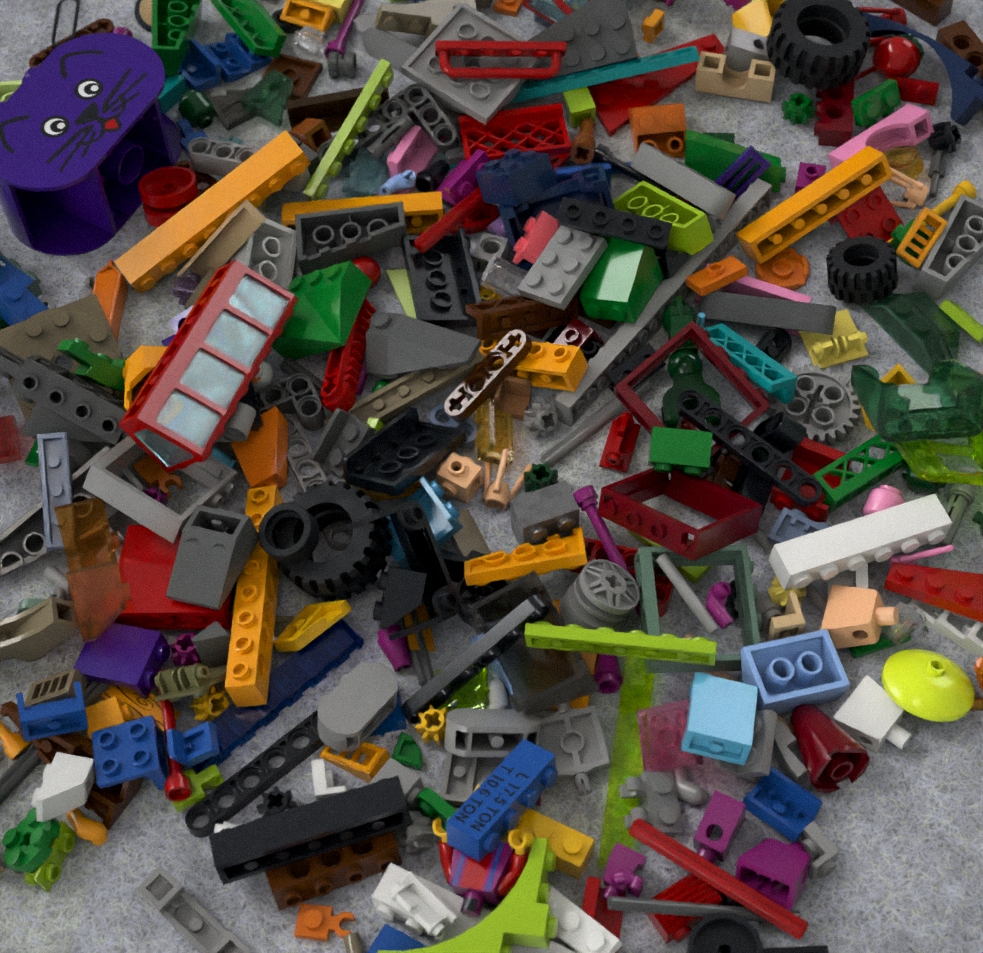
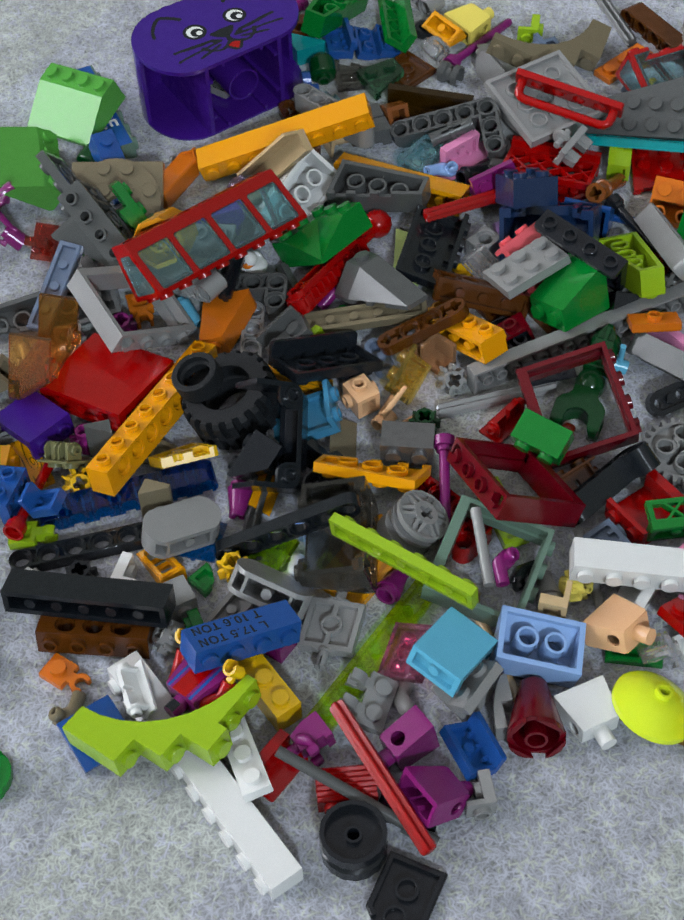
camera: 25 degrees right, 5 degrees down
(166, 192) = (261, 111): red wheel -> none
(211, 556) = (131, 370): dark grey slope -> none
(312, 686) = (153, 495): none -> dark tan slope
(353, 124) = (420, 115): lime plate -> none
(474, 223) = (483, 216): red plate -> none
(526, 106) = (578, 140): none -> light grey hips
(752, 443) = (605, 456): black beam -> none
(757, 364) = (645, 397): teal fence -> none

